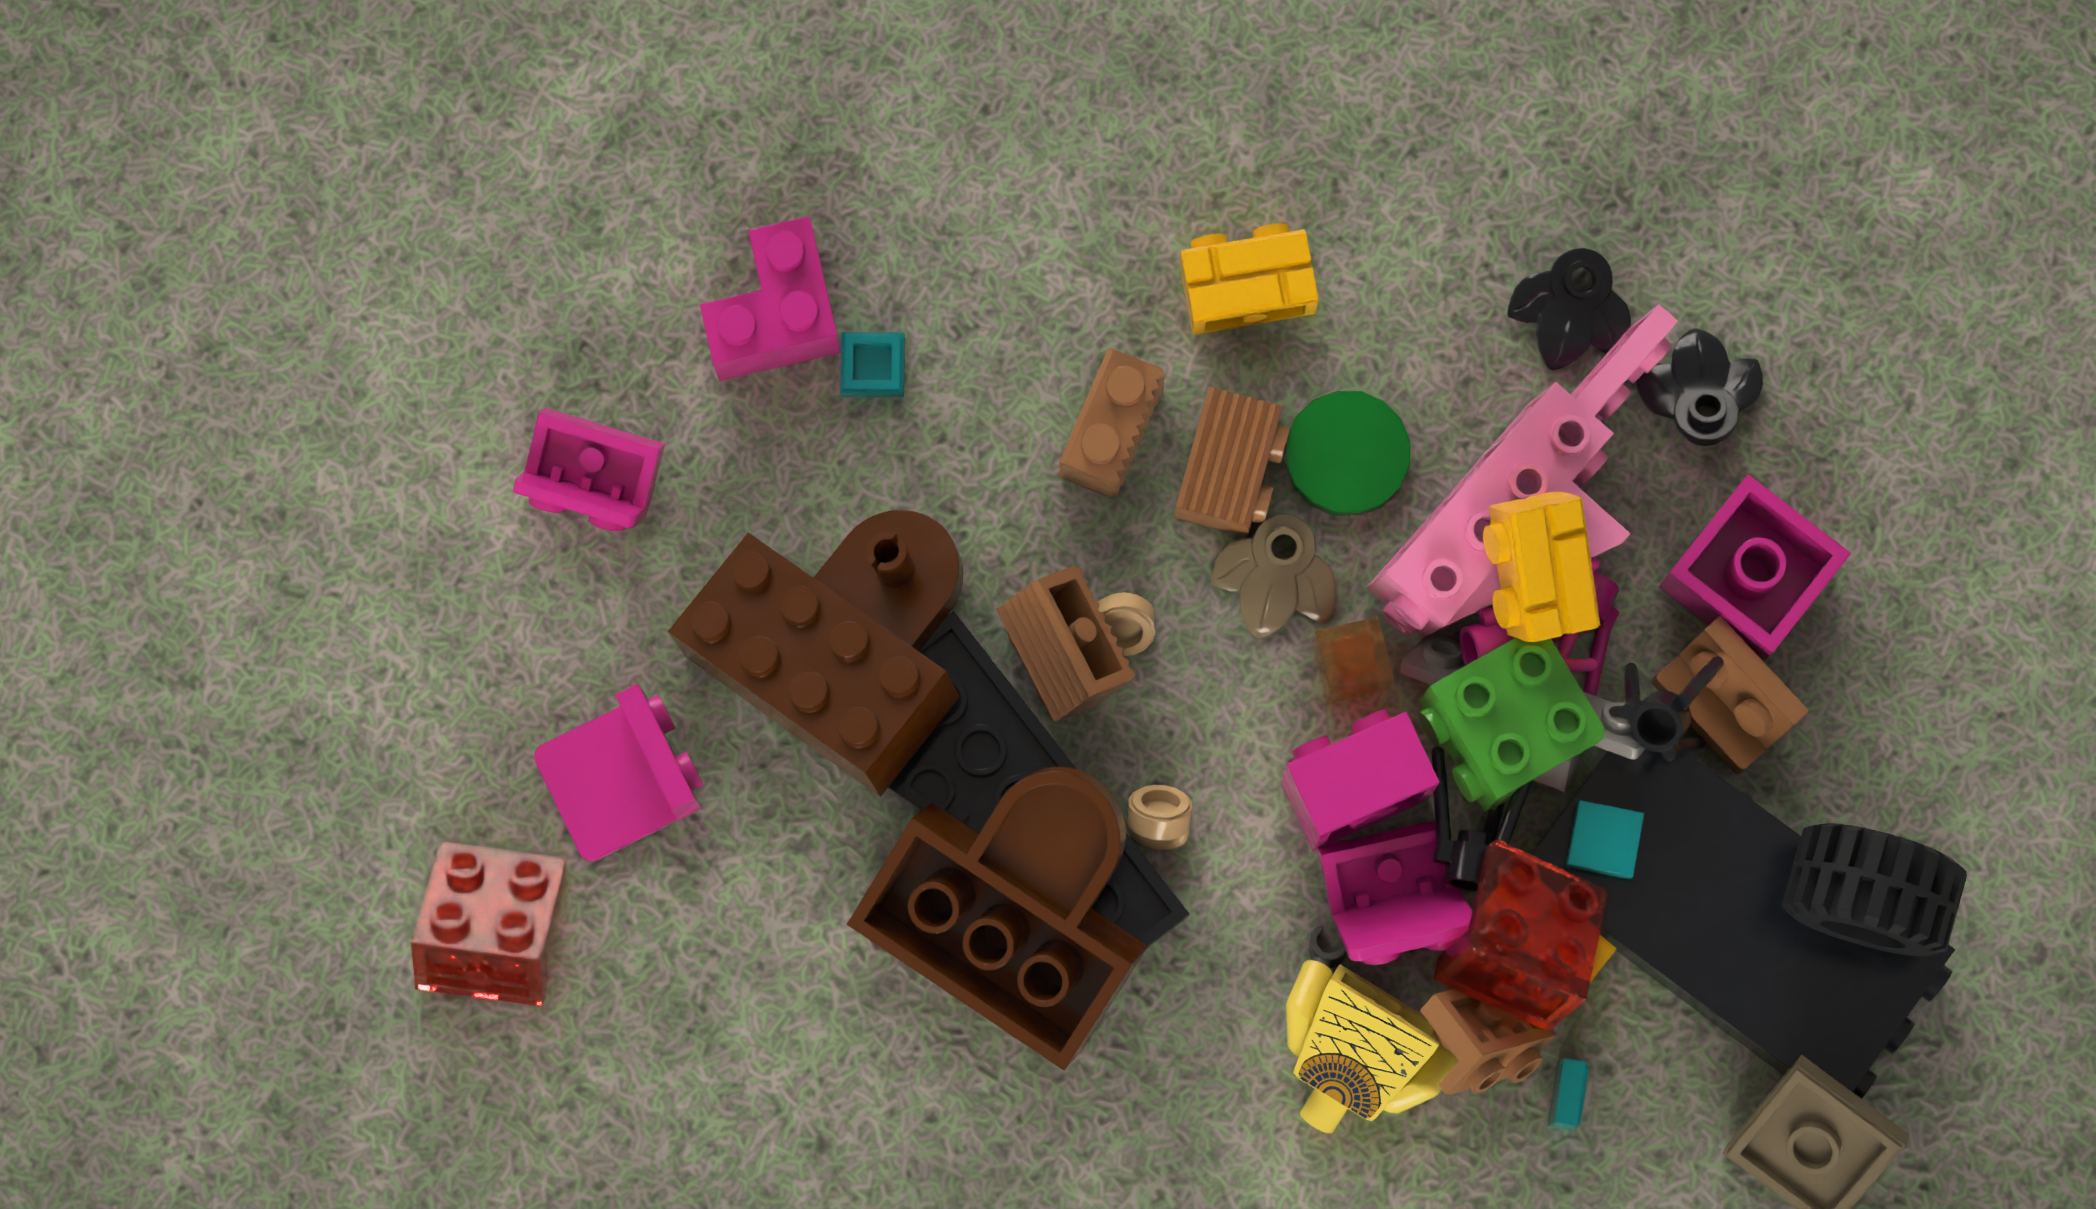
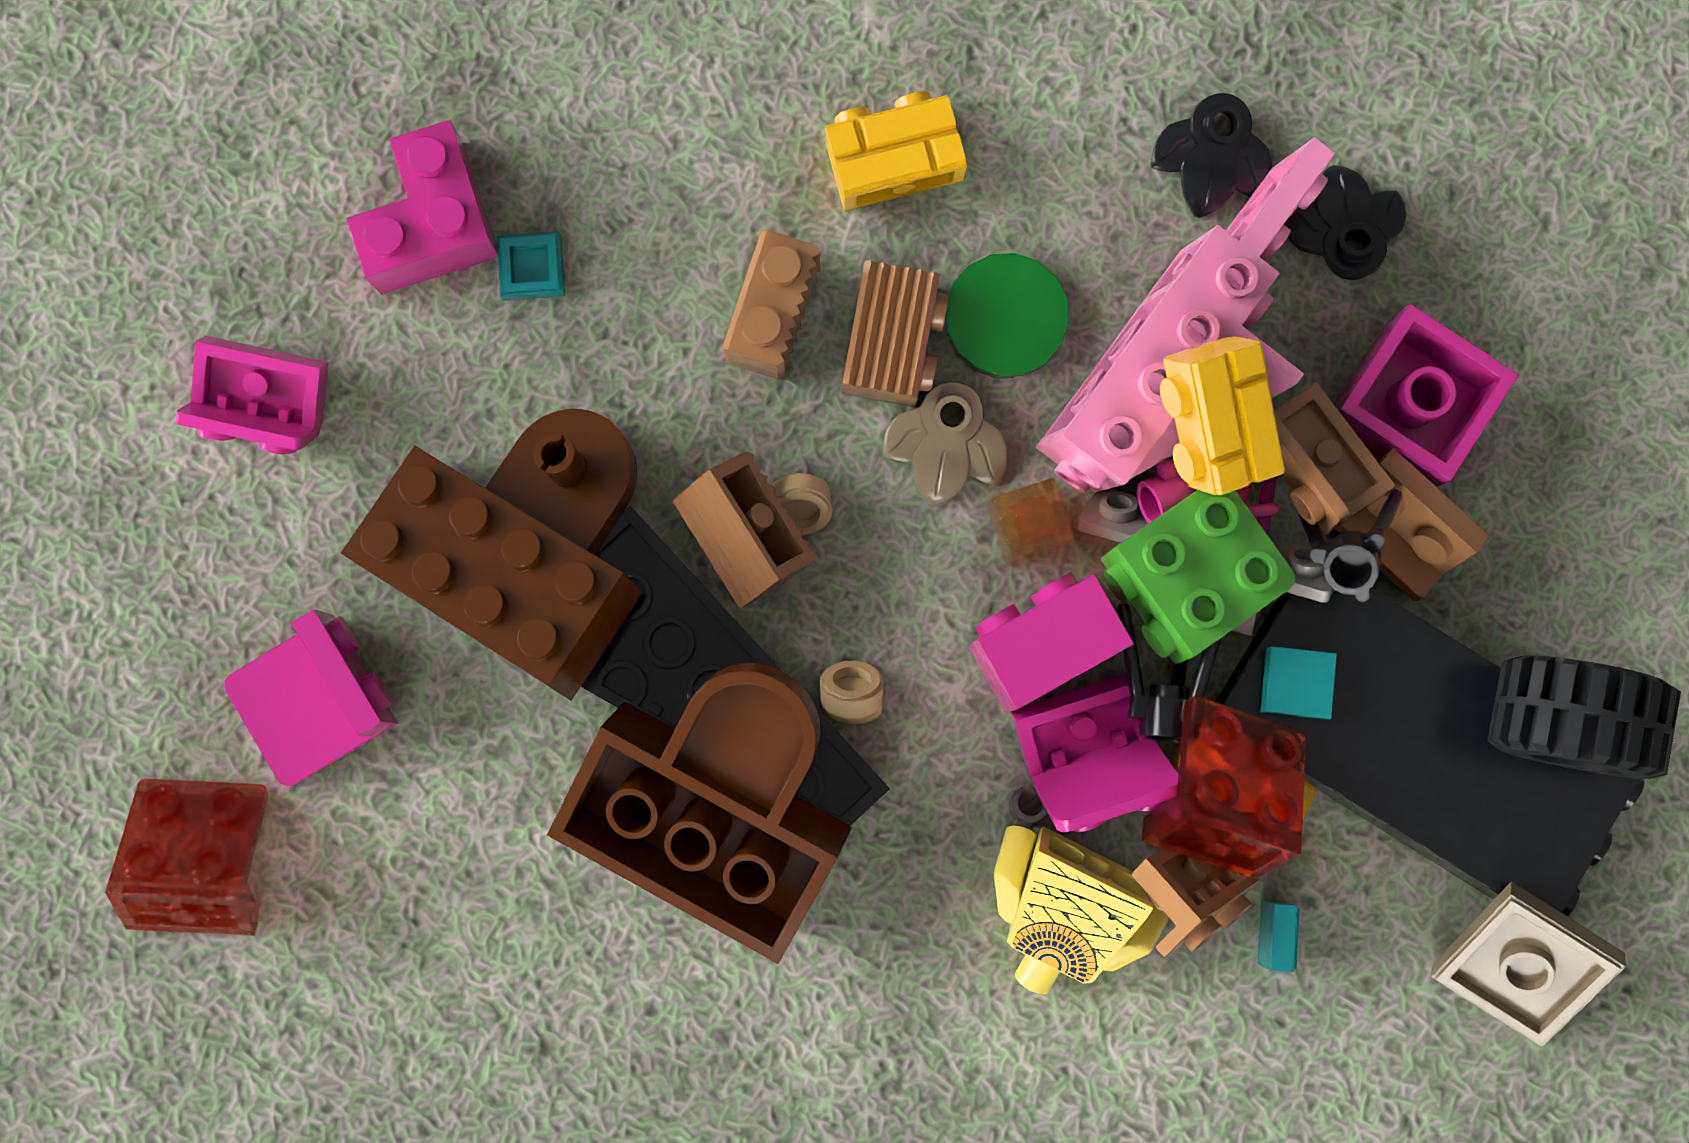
camera: 15 degrees left, 5 degrees up
(1647, 622) = (1326, 461): none -> medium nougat bracket

